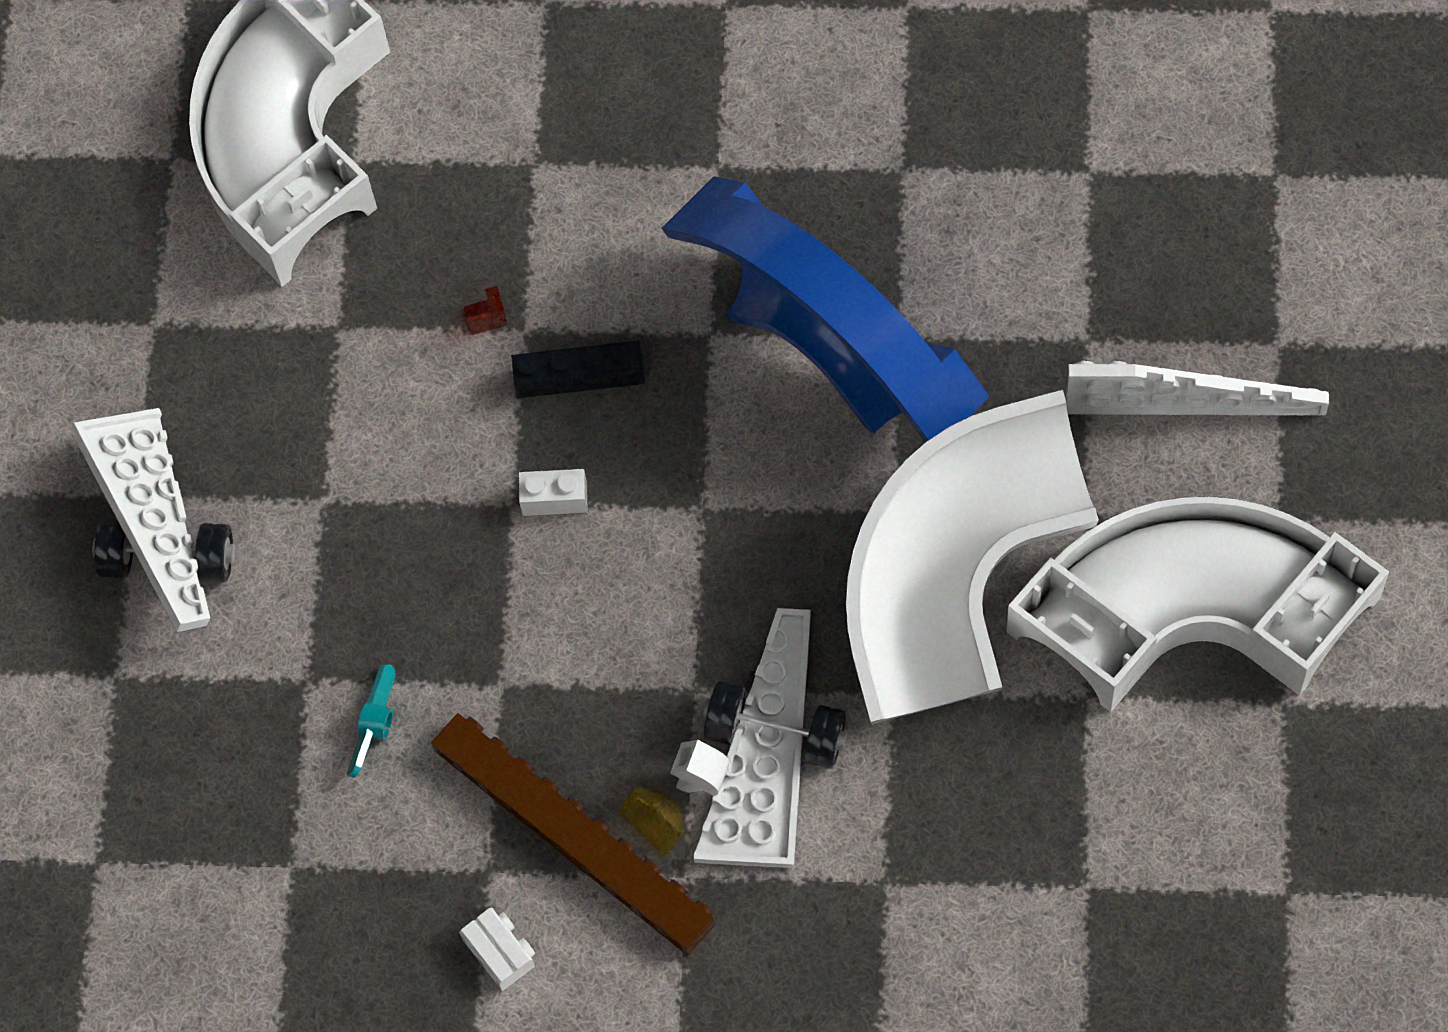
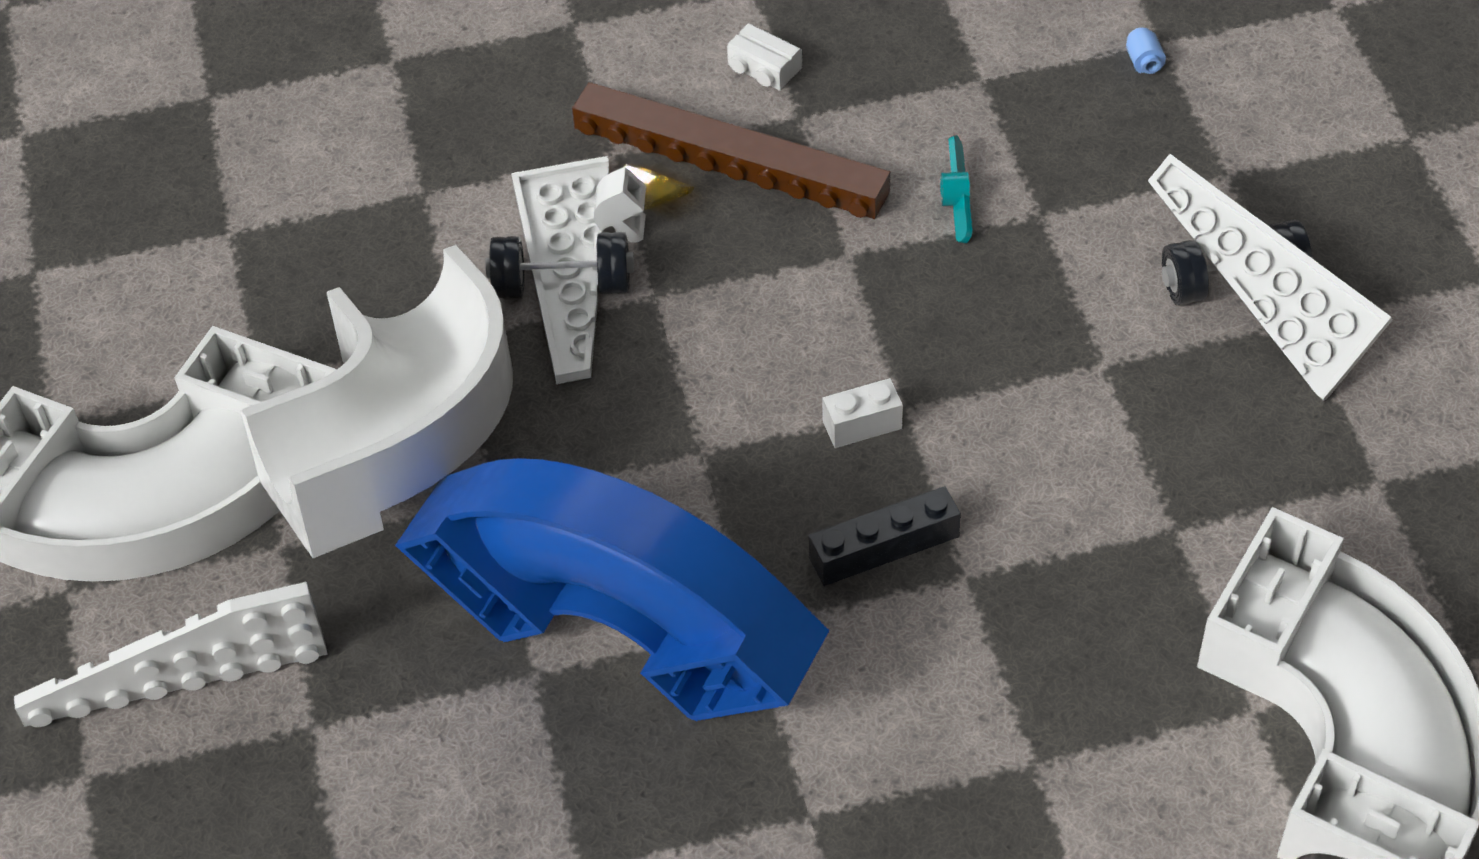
camera: 160 degrees right, 15 degrees down
(119, 842) = (1145, 51): none -> light blue brick
(486, 314) = (1013, 575): clear red panel -> none

